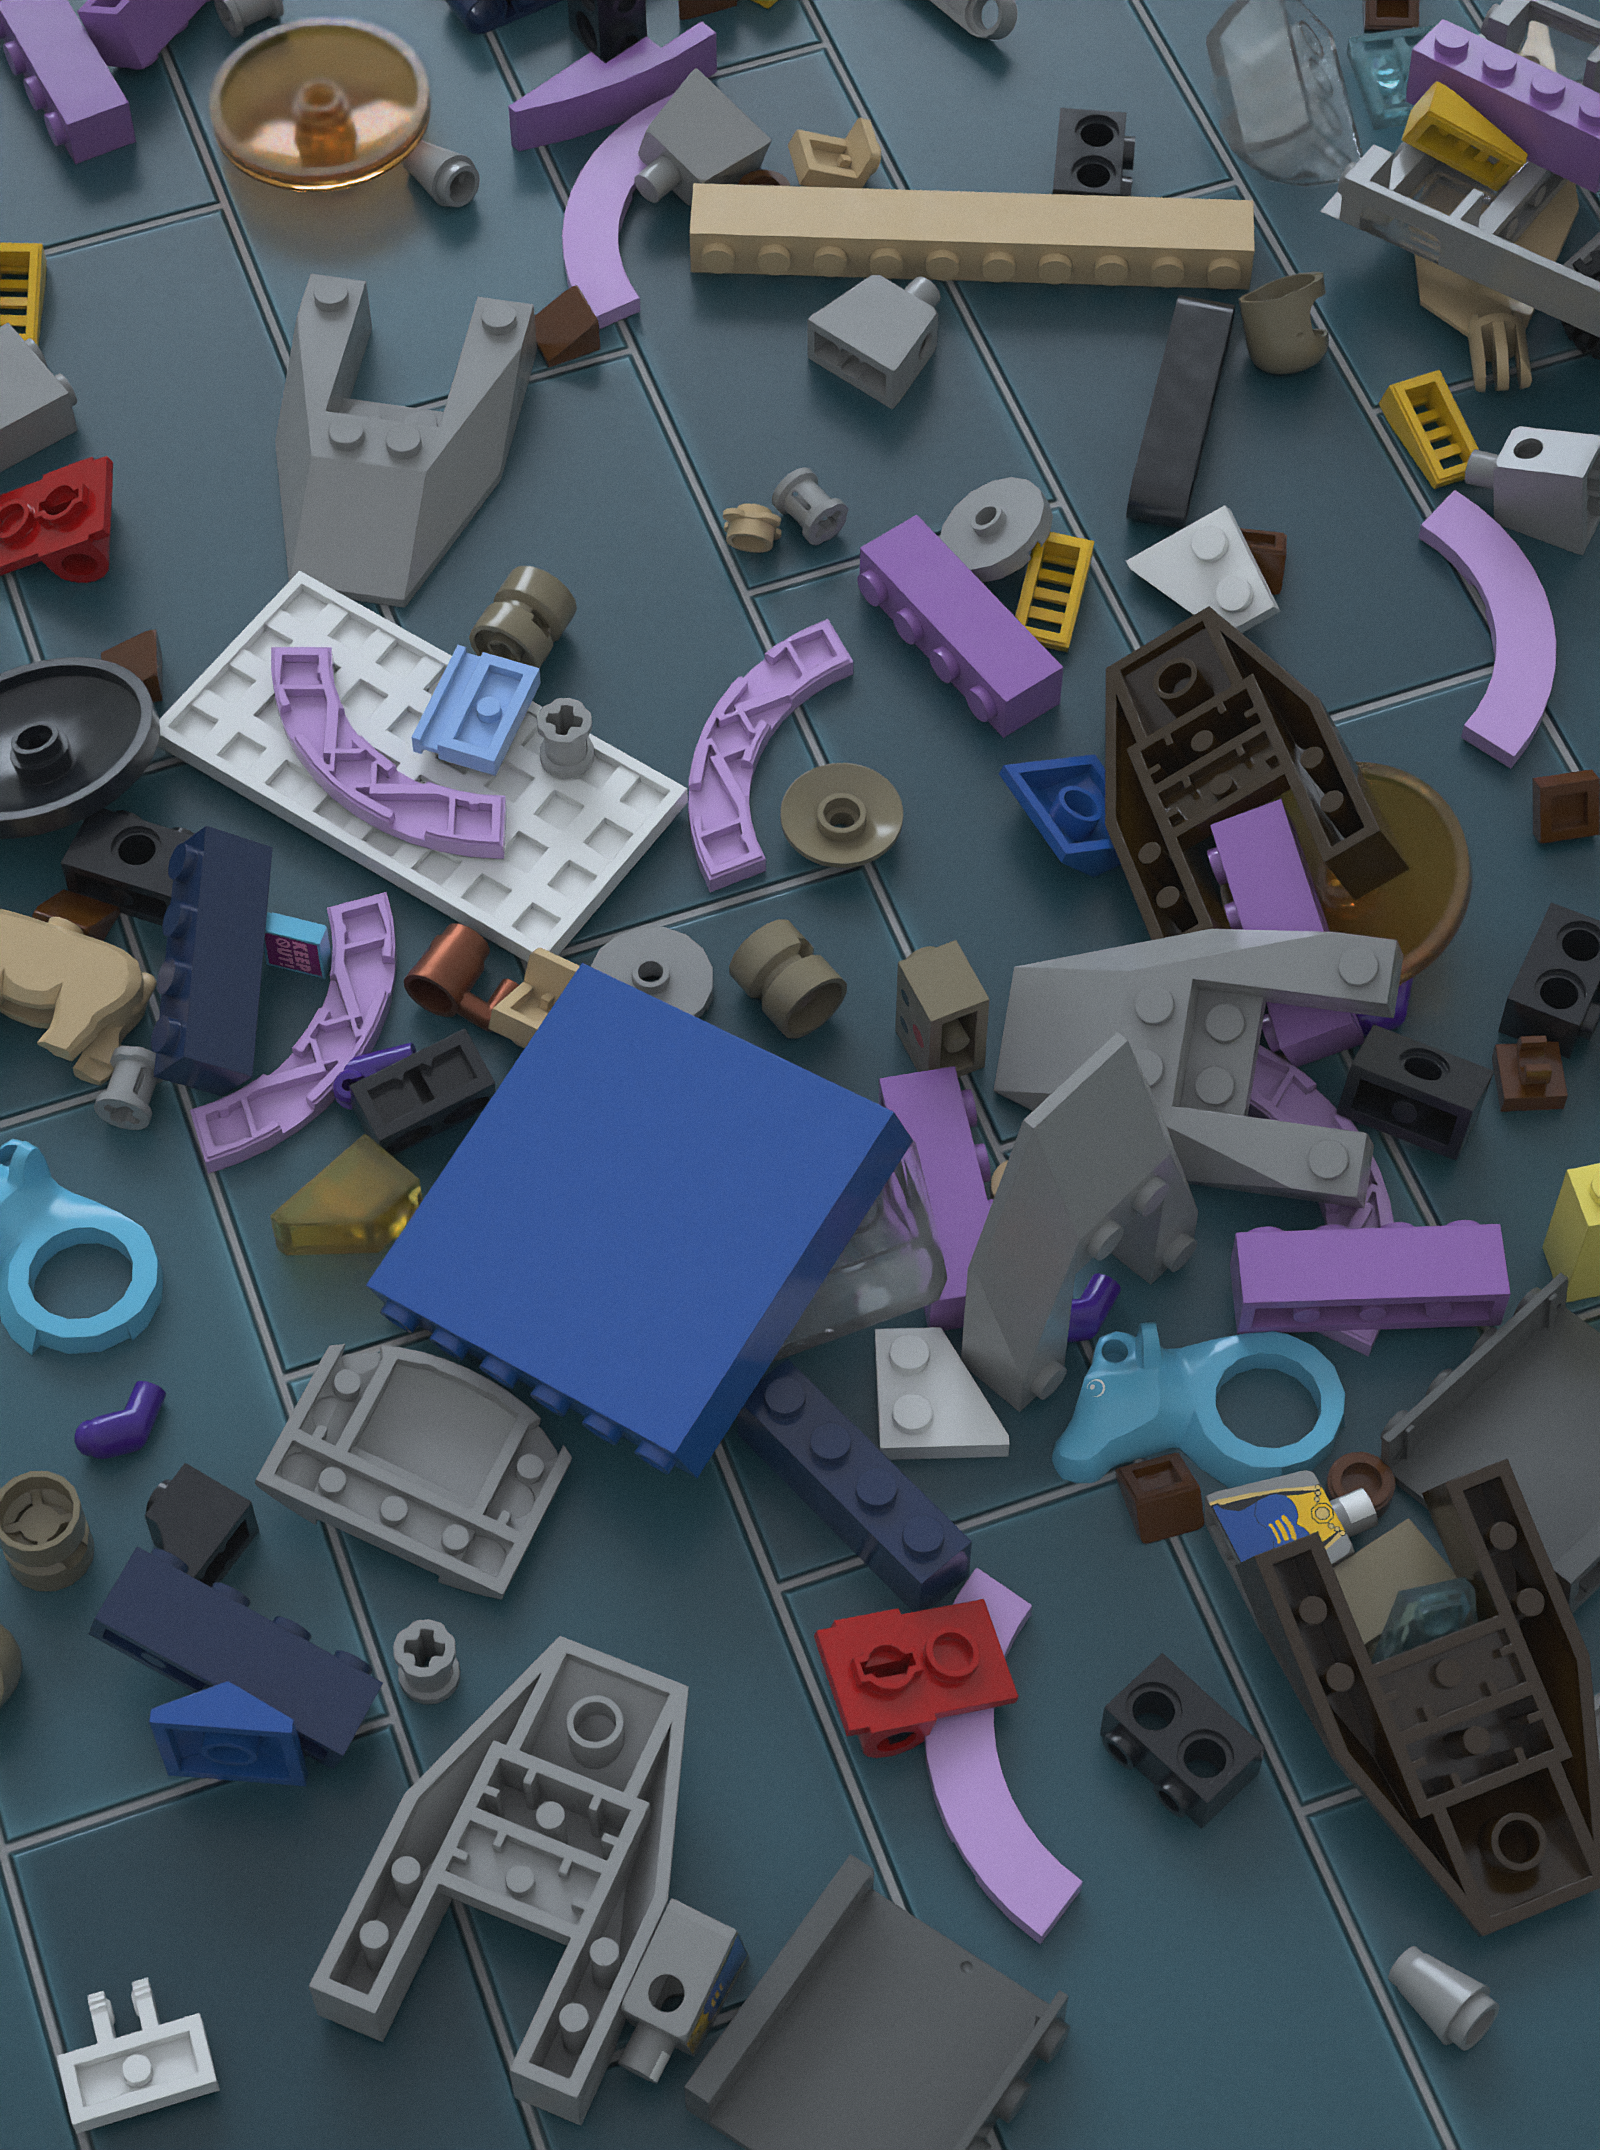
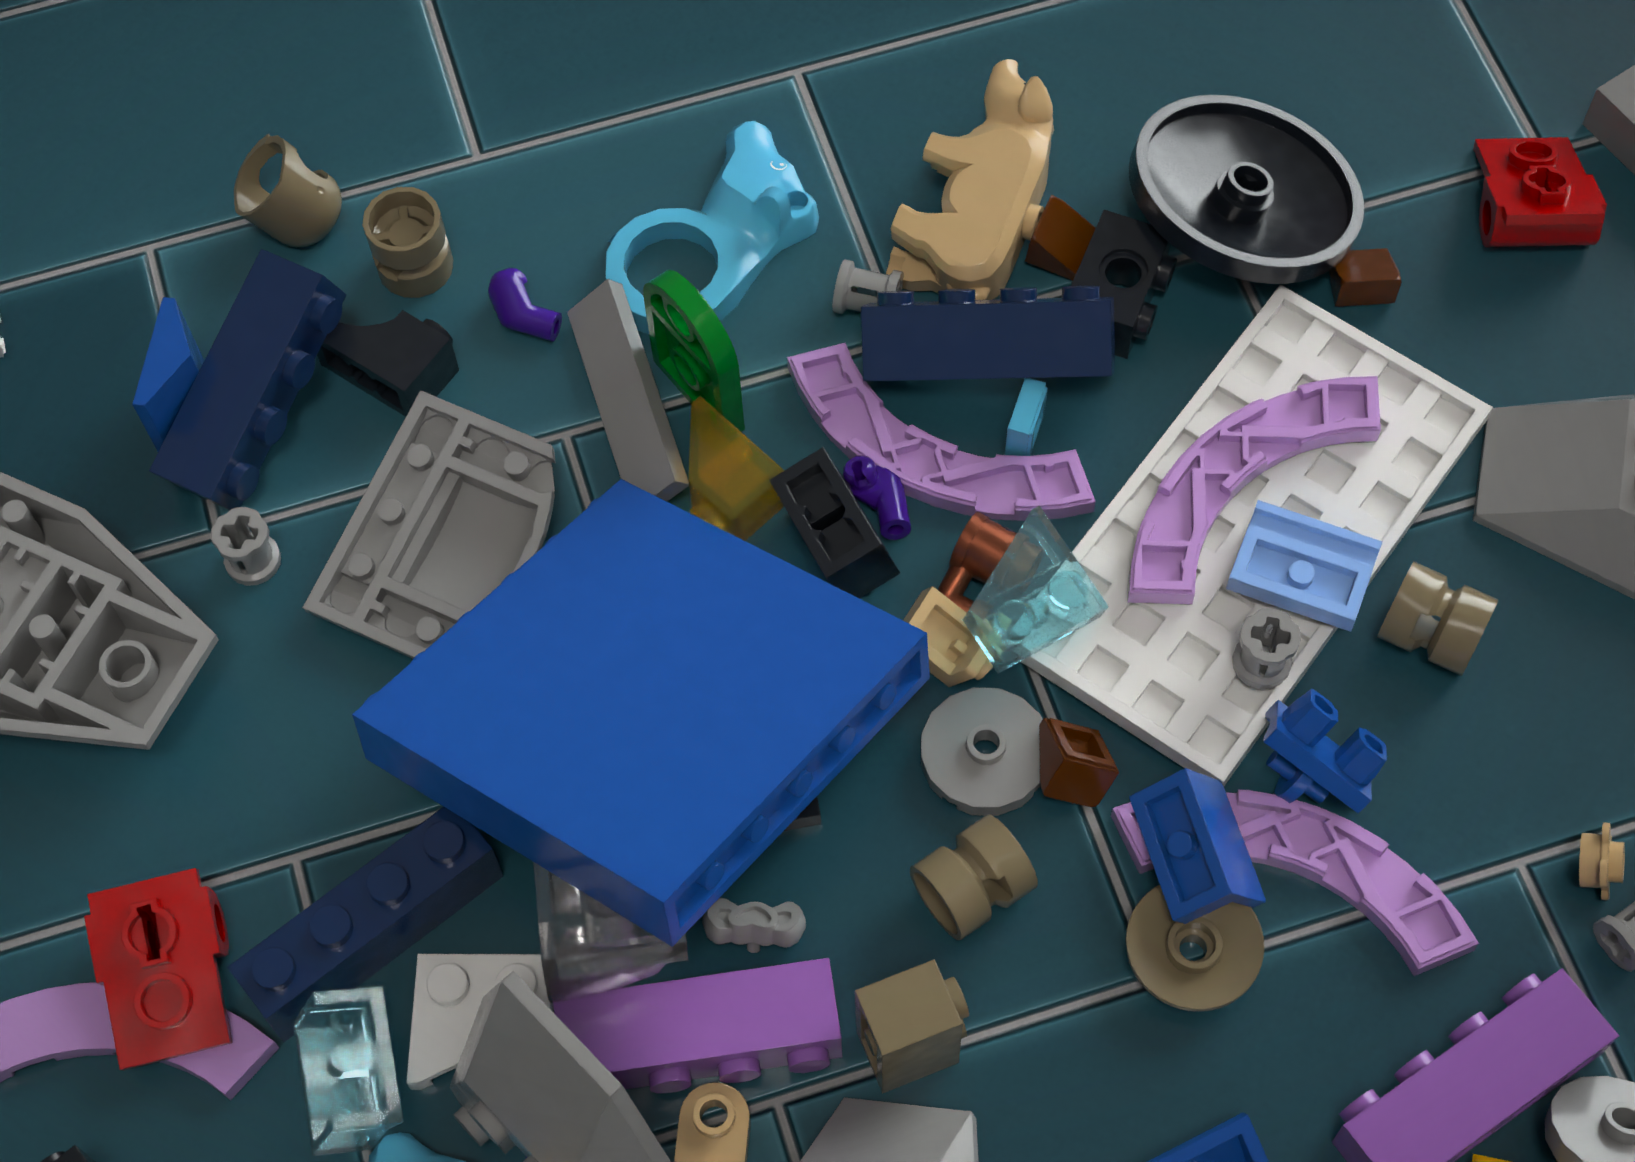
camera: 95 degrees right, 5 degrees up
(221, 1209) = (693, 345): none -> green tile
(247, 1306) = (627, 392): none -> light grey tile
(508, 919) = (1032, 596): none -> clear light blue wing
(660, 710) = (1314, 762): none -> blue hips
(664, 906) = (1074, 763): none -> reddish brown slope
(759, 804) = (1195, 845): none -> blue panel
(1020, 1494) = (347, 1070): none -> clear light blue window

